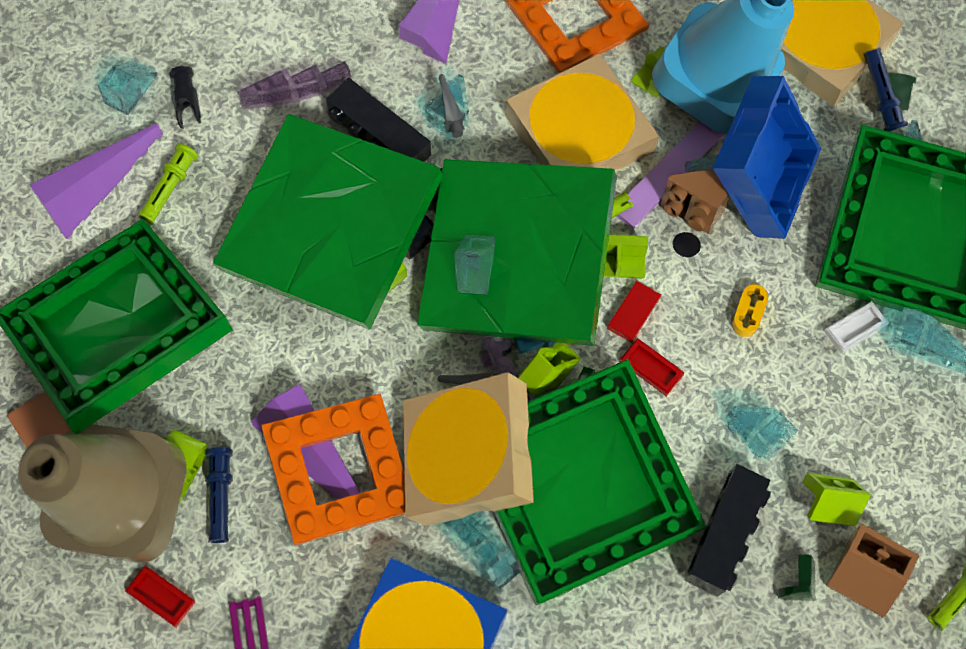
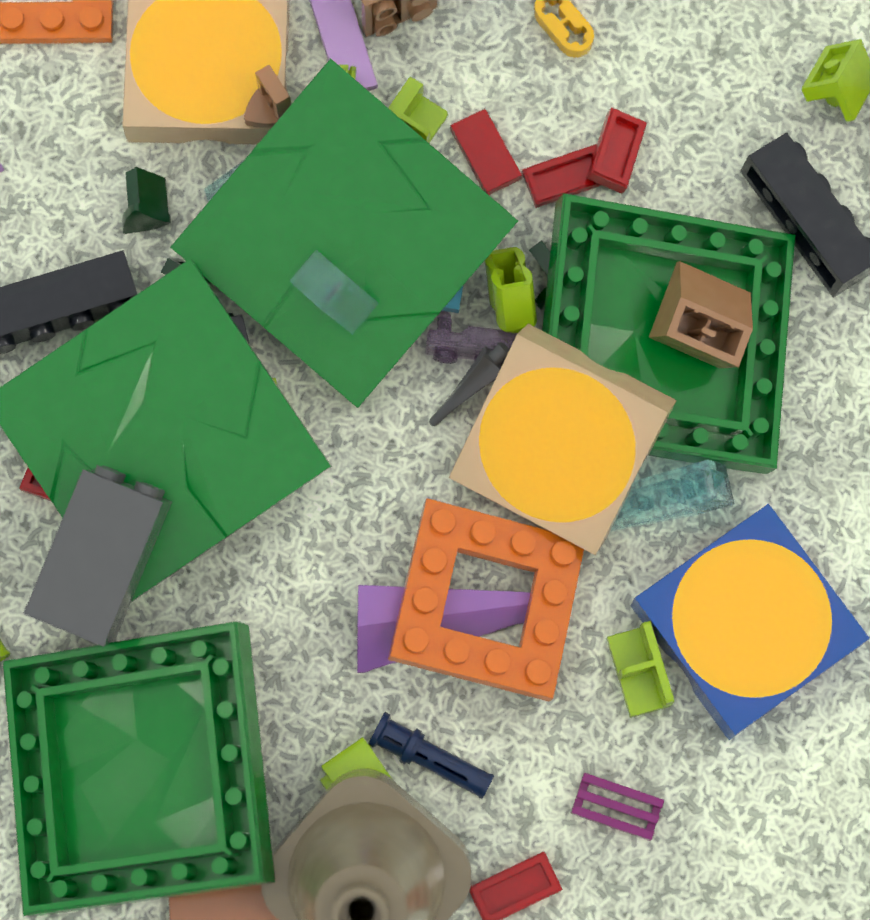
camera: 60 degrees left, 10 degrees up
(226, 223) = (98, 555): none -> dark grey brick
(348, 594) = (640, 670): none -> lime panel
(435, 109) = (84, 198): clear light blue slope -> none
(453, 115) = (105, 202): dark grey piece -> none
(474, 141) = (146, 202): none -> dark green tile
(577, 158) = (268, 101): none -> medium nougat tile
(608, 494) = (704, 317): none -> medium nougat slope
(686, 244) = (435, 40): black piece -> none
(688, 386) = (616, 150): none -> red tile
(762, 428) = (718, 102): clear light blue slope -> none

